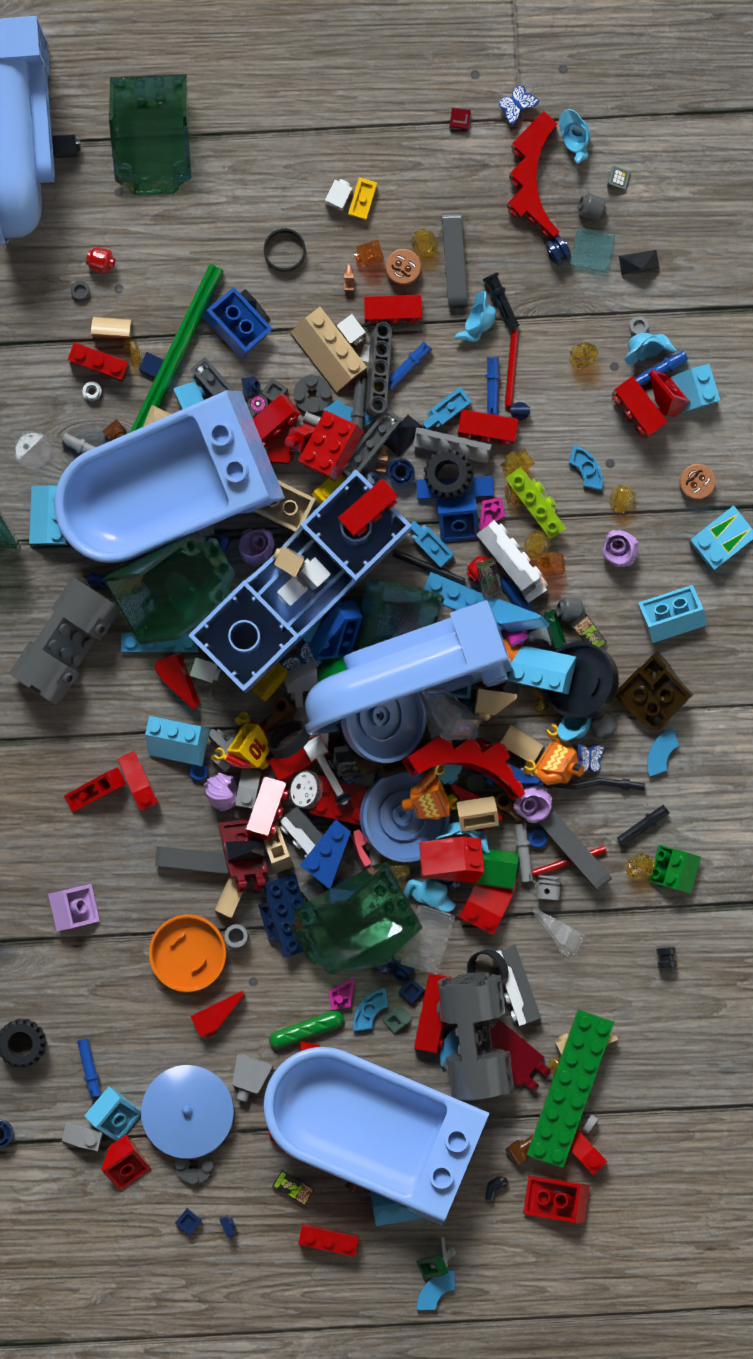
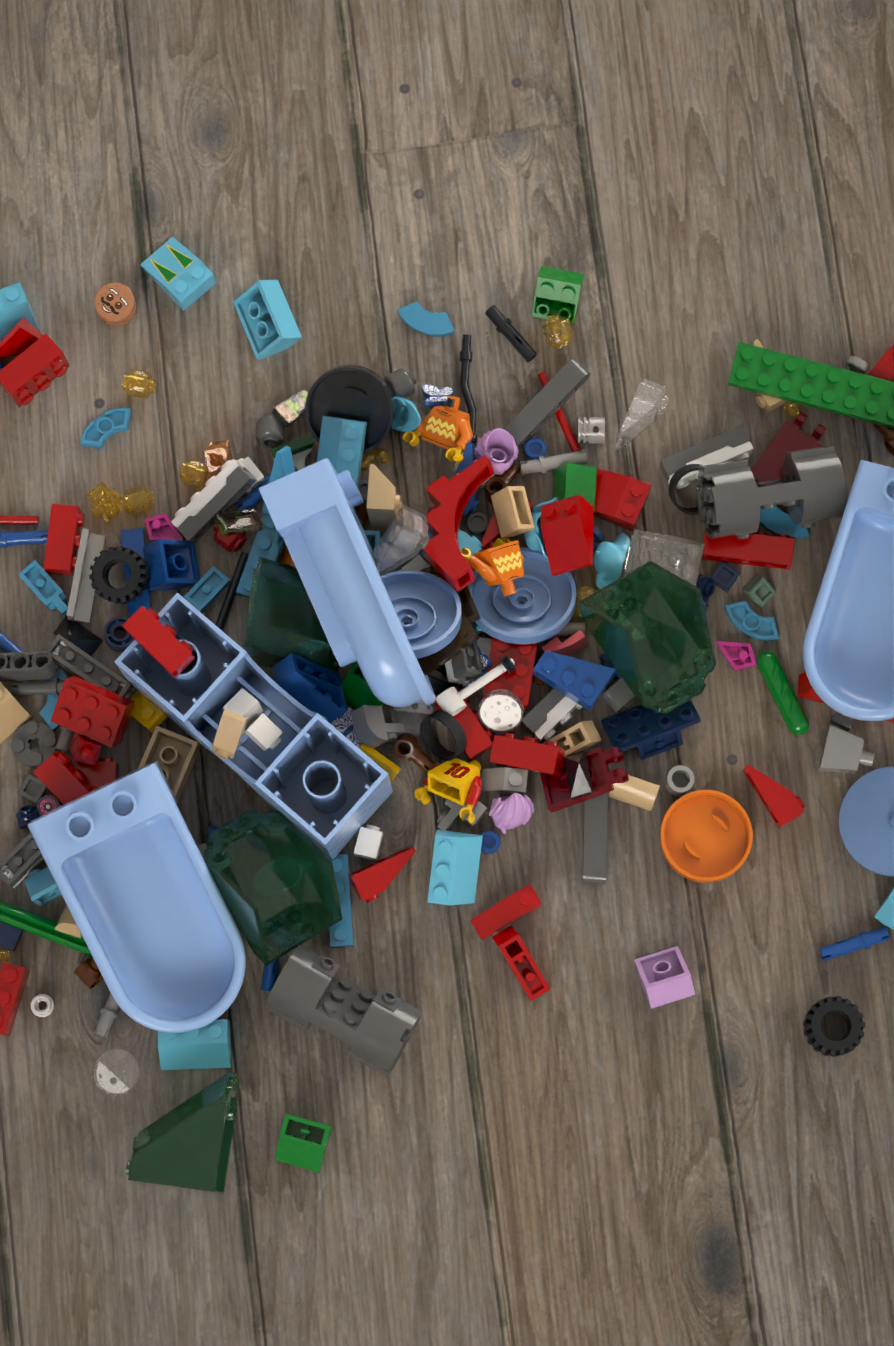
camera: 85 degrees left, 10 degrees down
(256, 546) = (217, 793): lavender hair -> none
(382, 460) = (106, 657): nougat piece -> none
(520, 411) = (42, 505): dark blue plate -> none
(521, 744) = (431, 469): tan brick -> none
(536, 501) = (147, 476): lime bracket -> none
(620, 548) = (195, 380): lavender hair -> none
(654, 692) = (358, 329): dark brown slope -> none
(666, 957) = (661, 295): black wheel -> none

